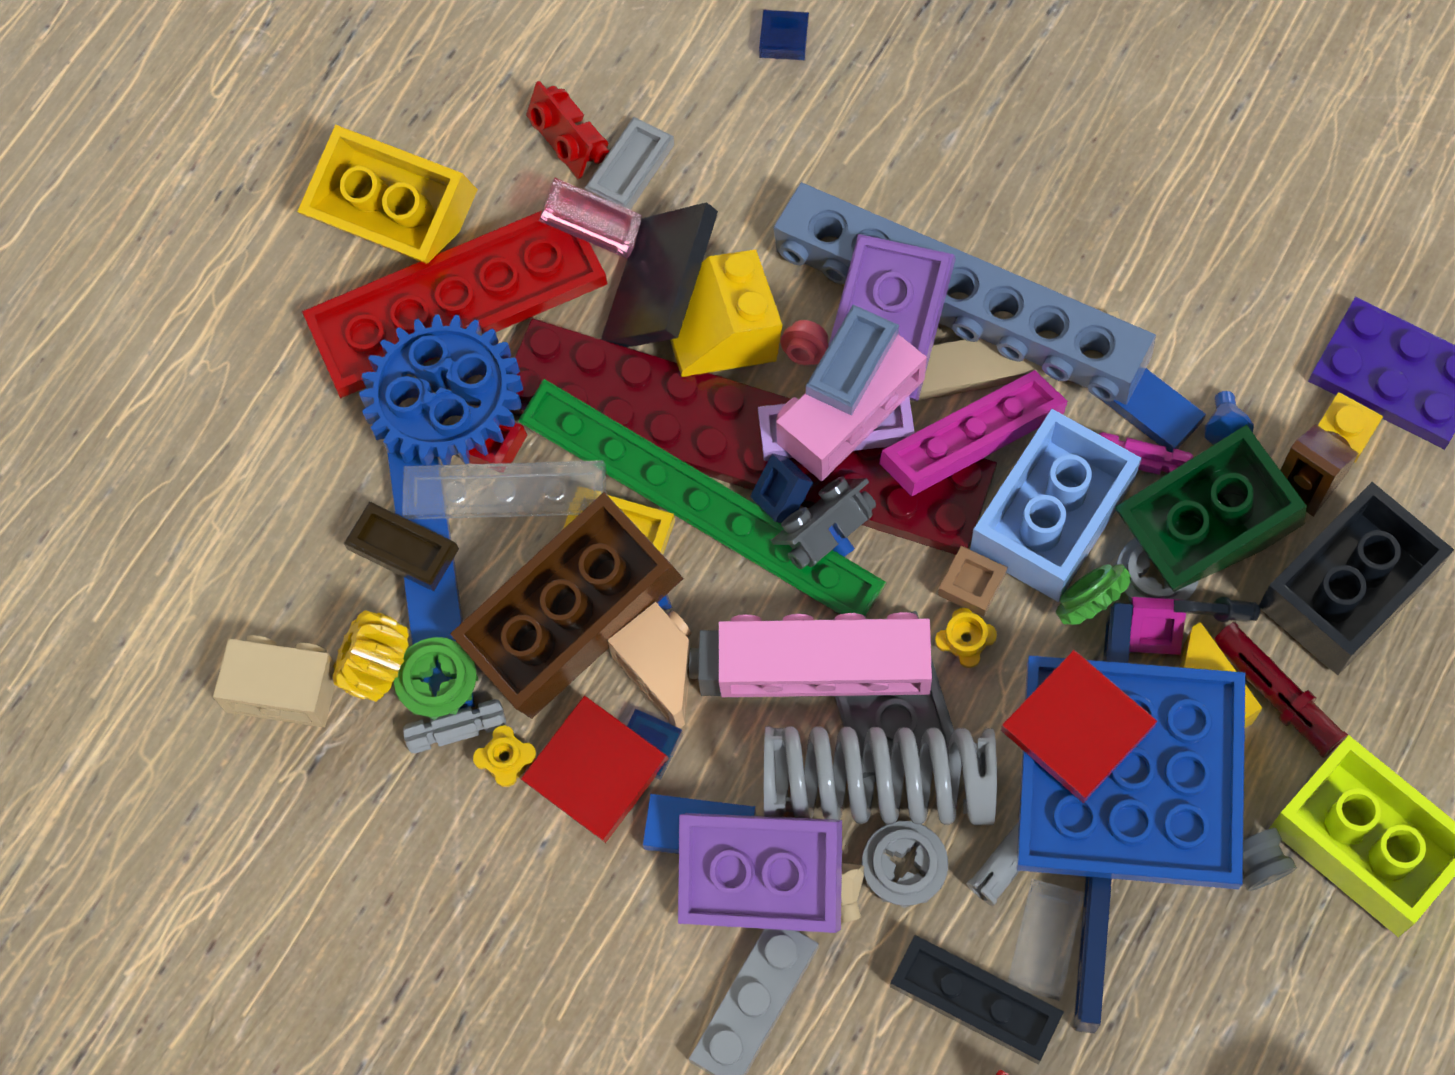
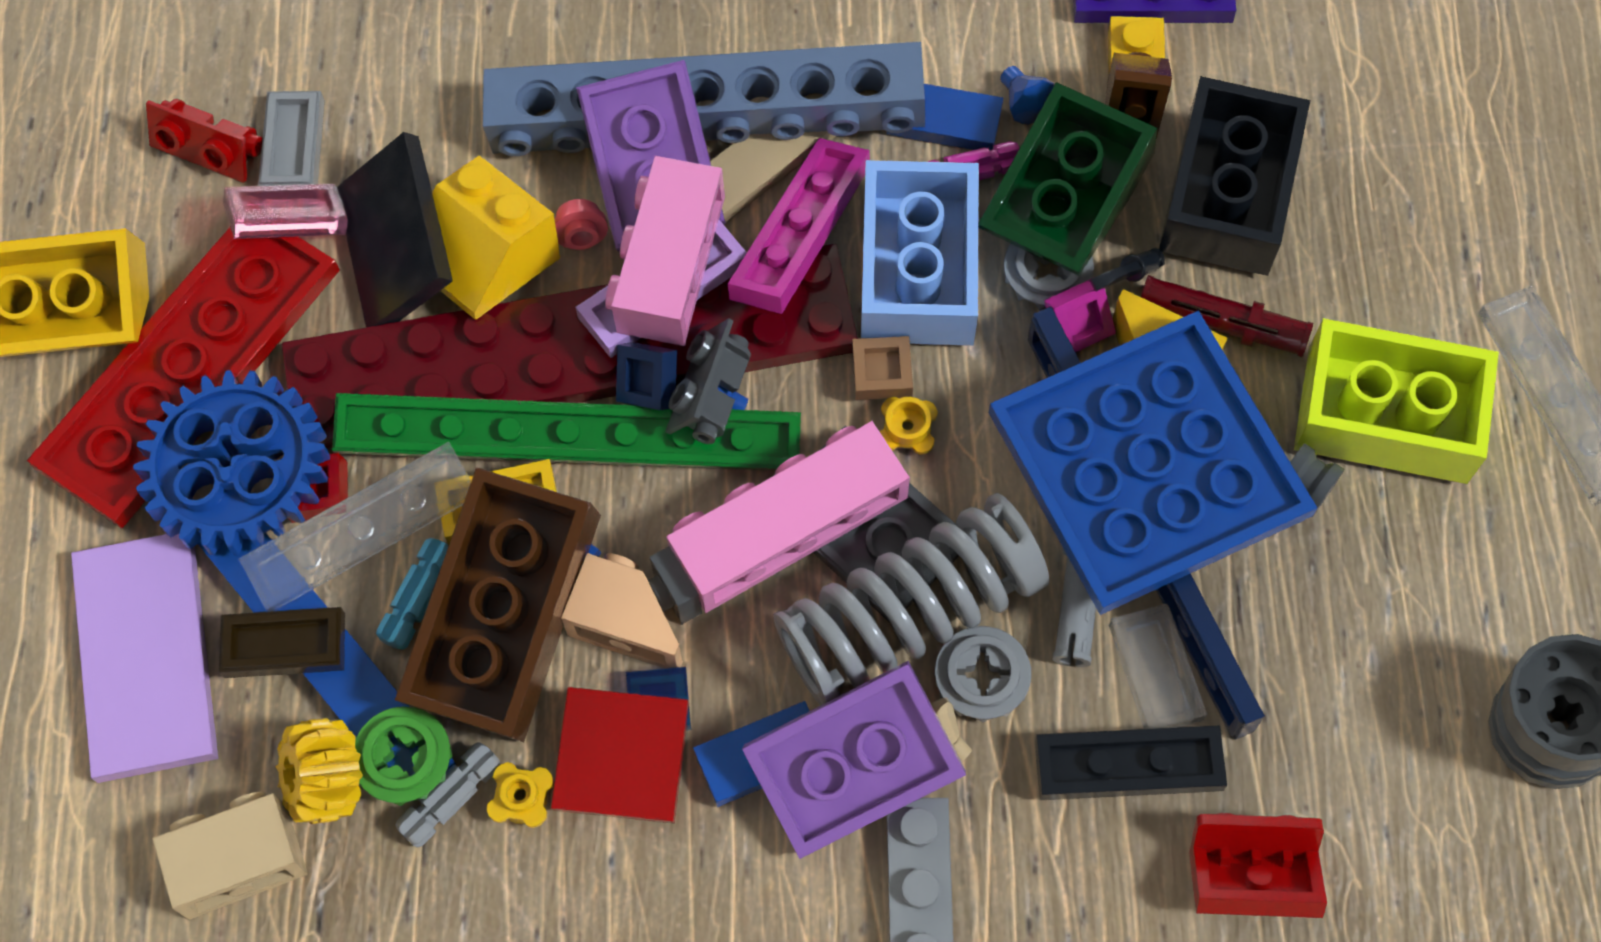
camera: 35 degrees left, 0 degrees up
(301, 502) = (143, 657): none -> lavender tile
(491, 579) = (413, 596): none -> medium azure axle
(852, 359) = (651, 207): sand blue tile -> none
(1078, 726) = (1080, 443): red tile -> none
(1093, 593) = (1005, 317): bright green gear -> none

